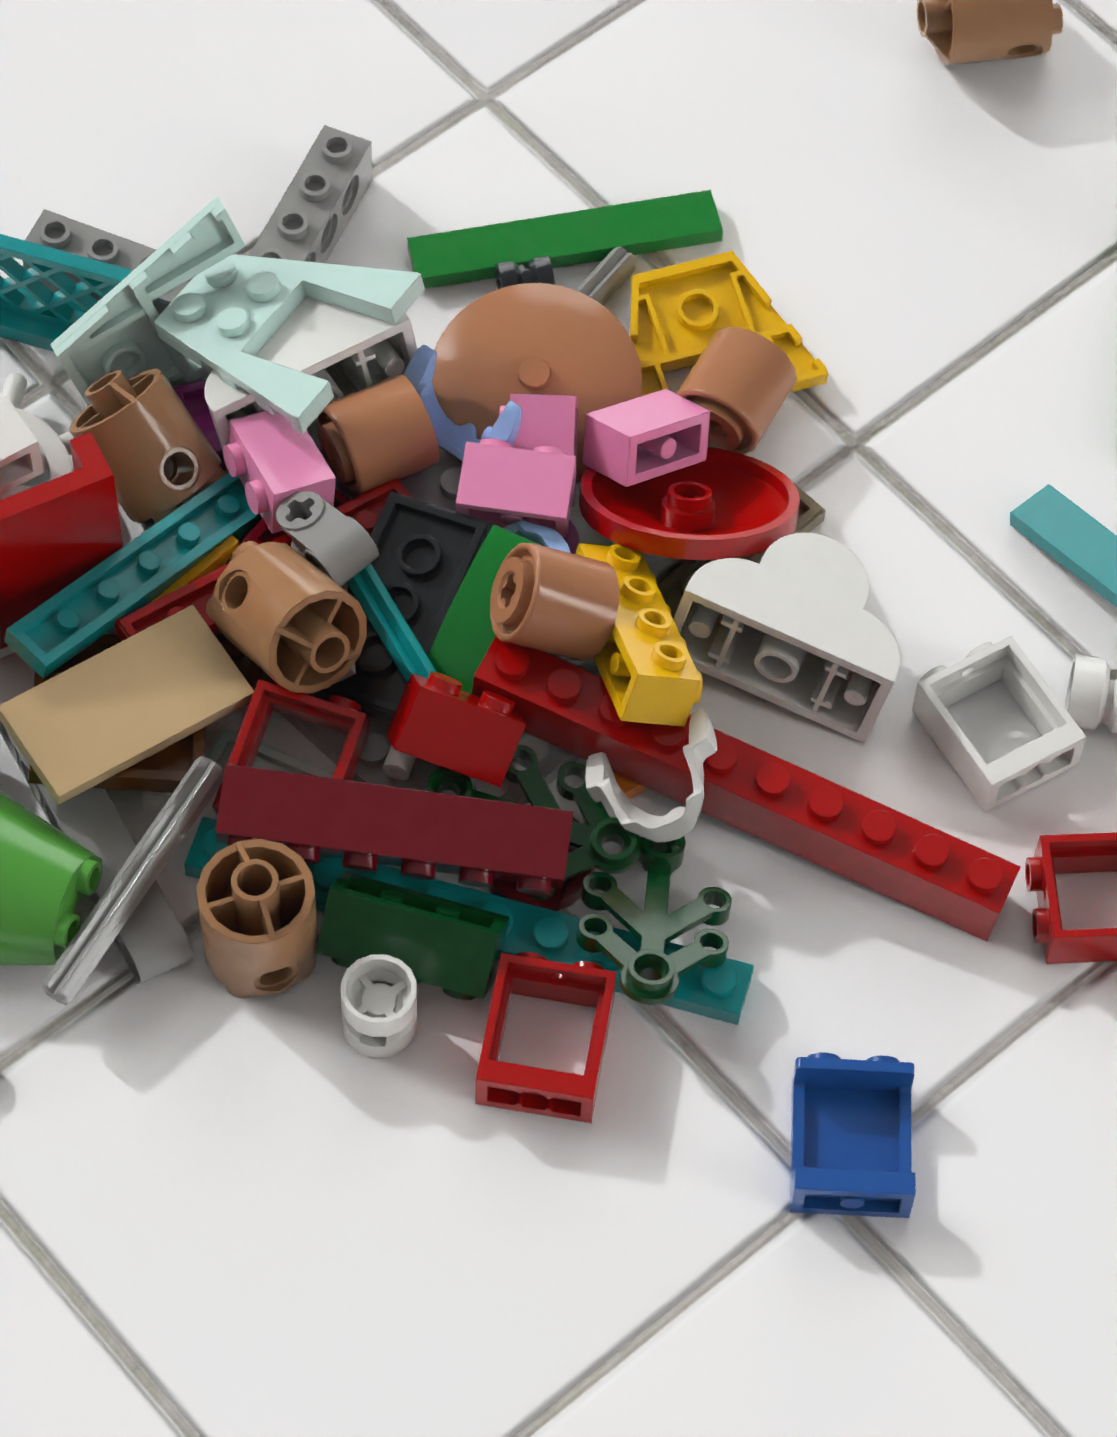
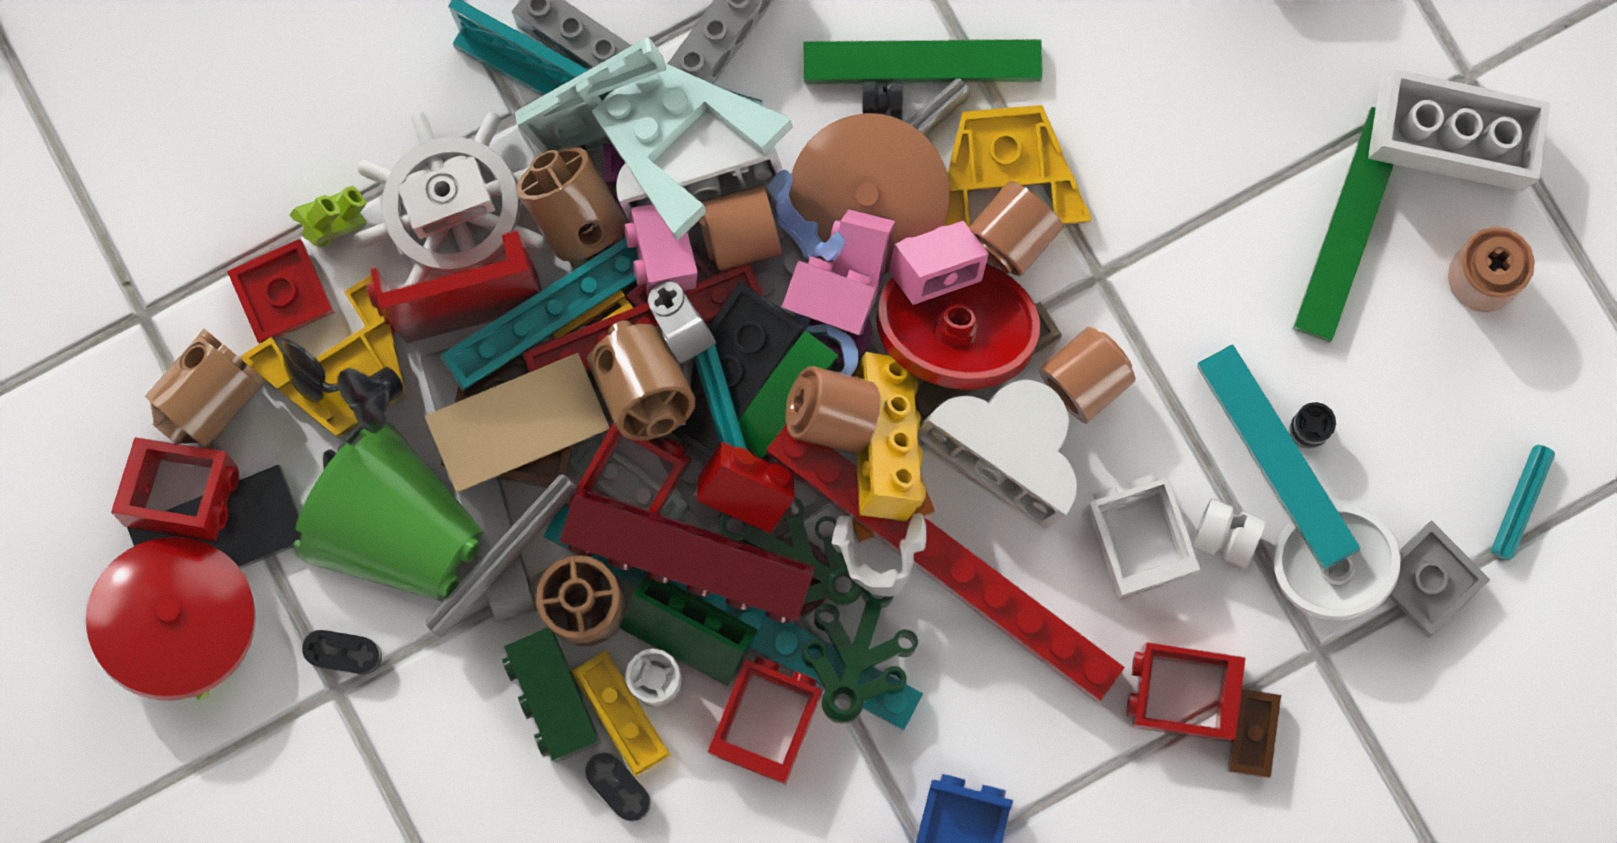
camera: 20 degrees right, 20 degrees up
(237, 1059) = (550, 695): none -> dark green brick
(339, 1071) = (620, 713): none -> yellow tile
(364, 1154) = (610, 793): none -> black beam
(884, 529) = (1088, 373): none -> nougat piece

